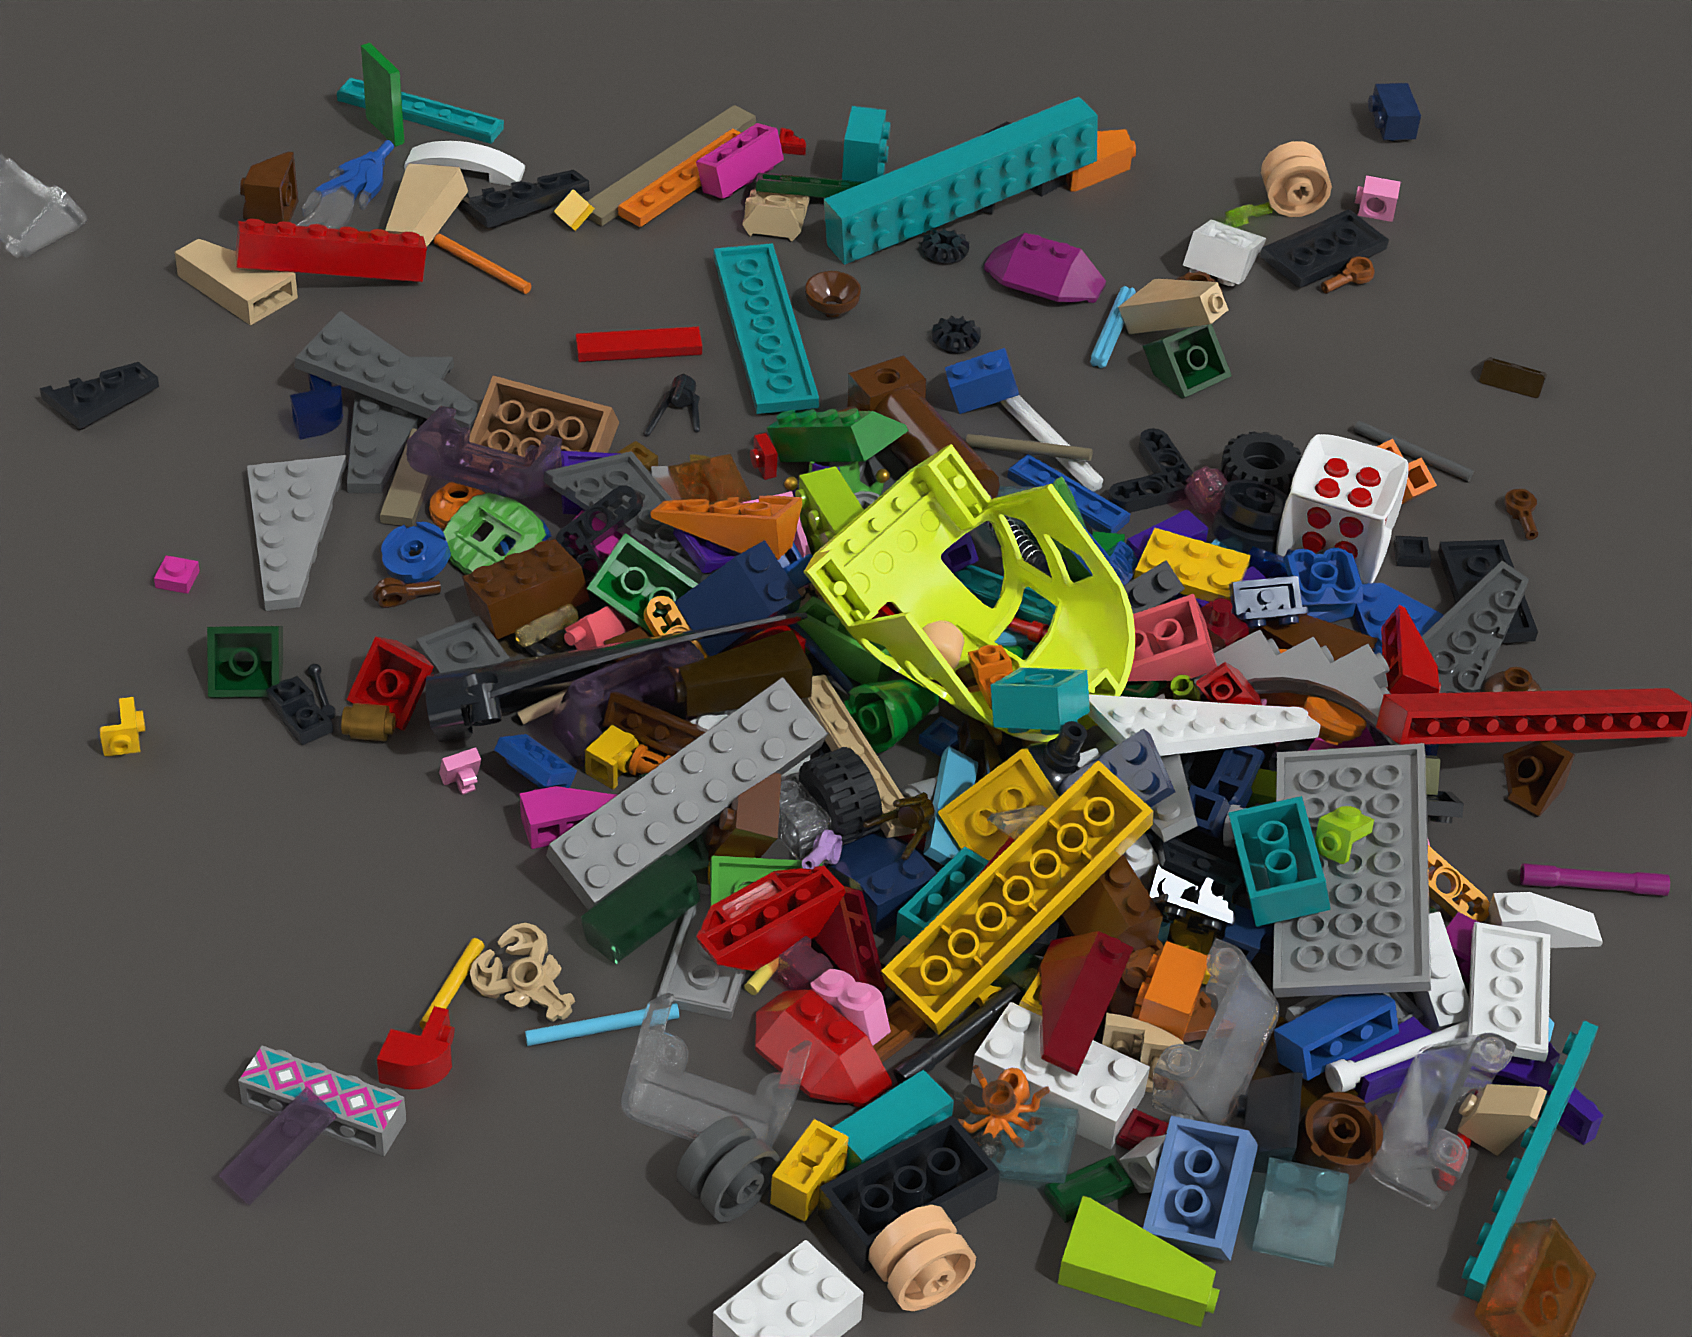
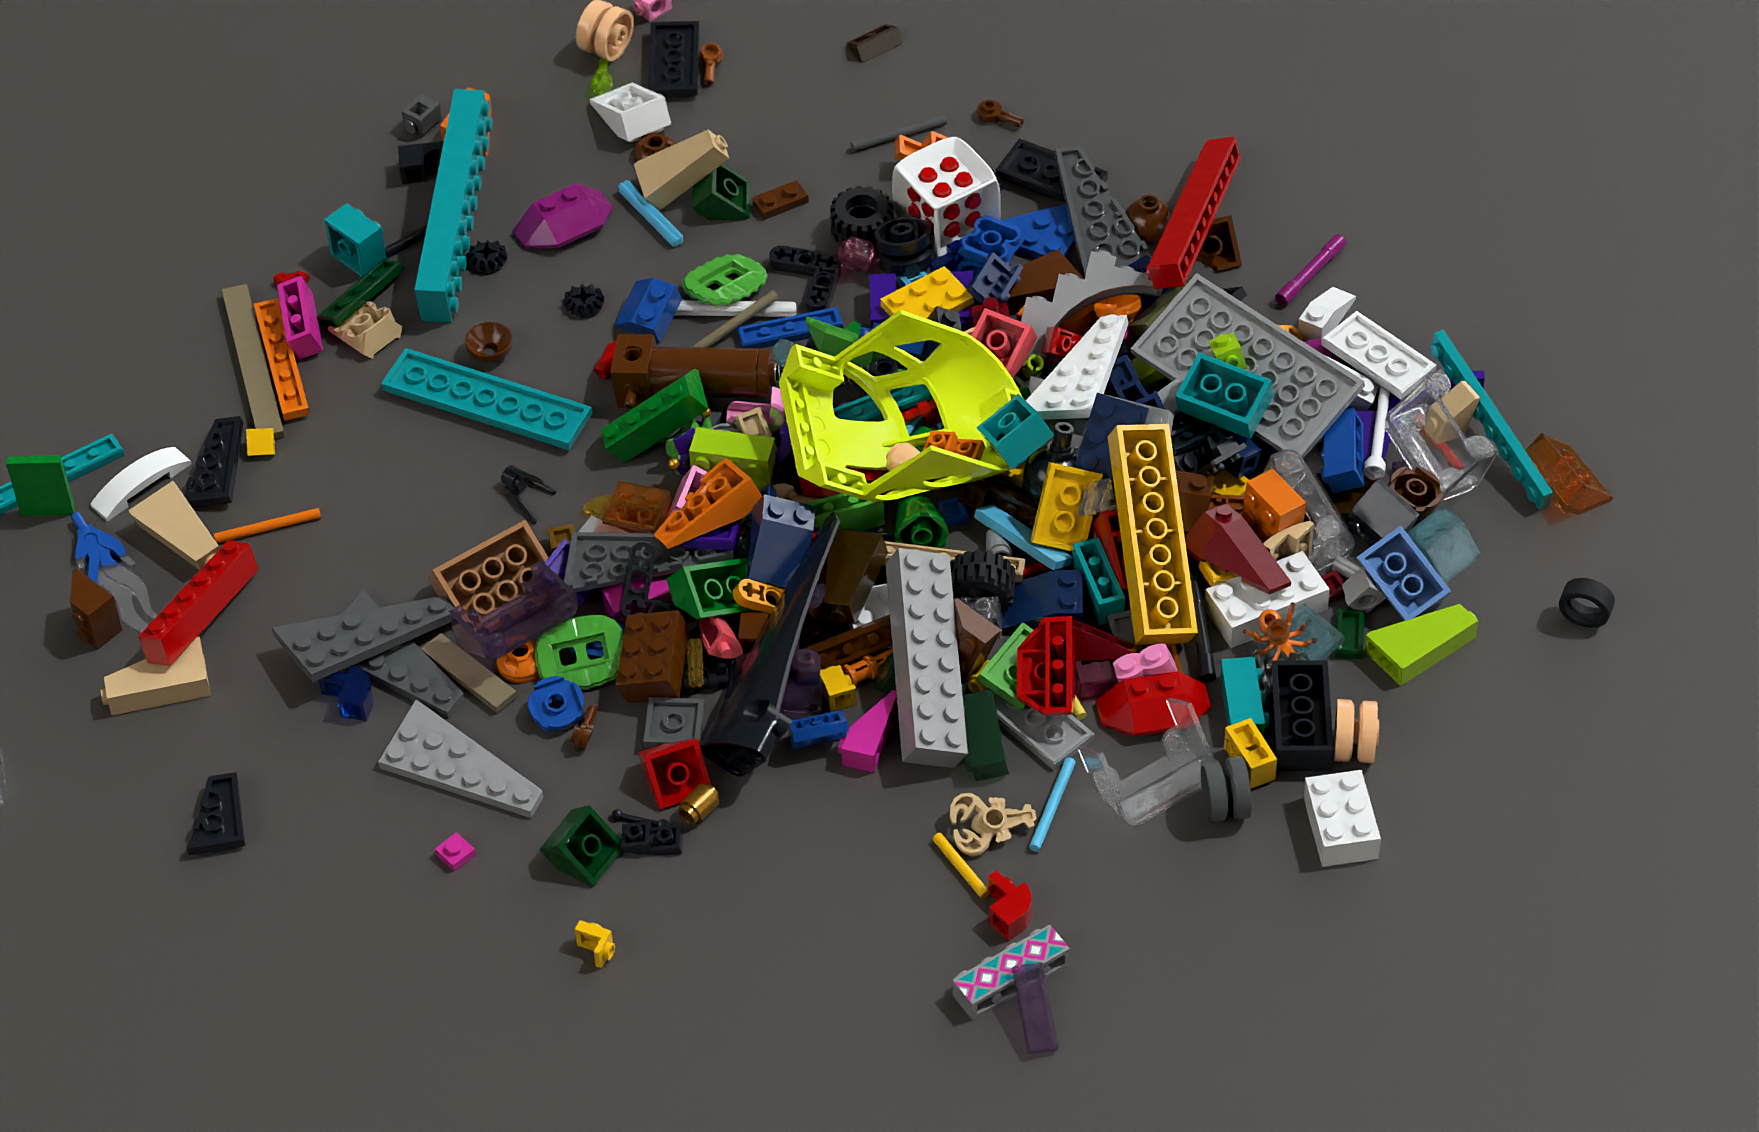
camera: 50 degrees left, 5 degrees up
(461, 769) = (785, 773): bright pink tile -> none
(638, 344) = (438, 479): red tile -> none
(764, 456) = (622, 466): red plate -> none
(826, 849) = (1014, 615): lavender plate -> none
(912, 813) = (1026, 554): dark brown plant -> none
(1113, 418) = (715, 271): none -> bright green piece
(1229, 407) = (780, 200): none -> reddish brown plate
(1407, 657) = (1083, 239): red slope -> none

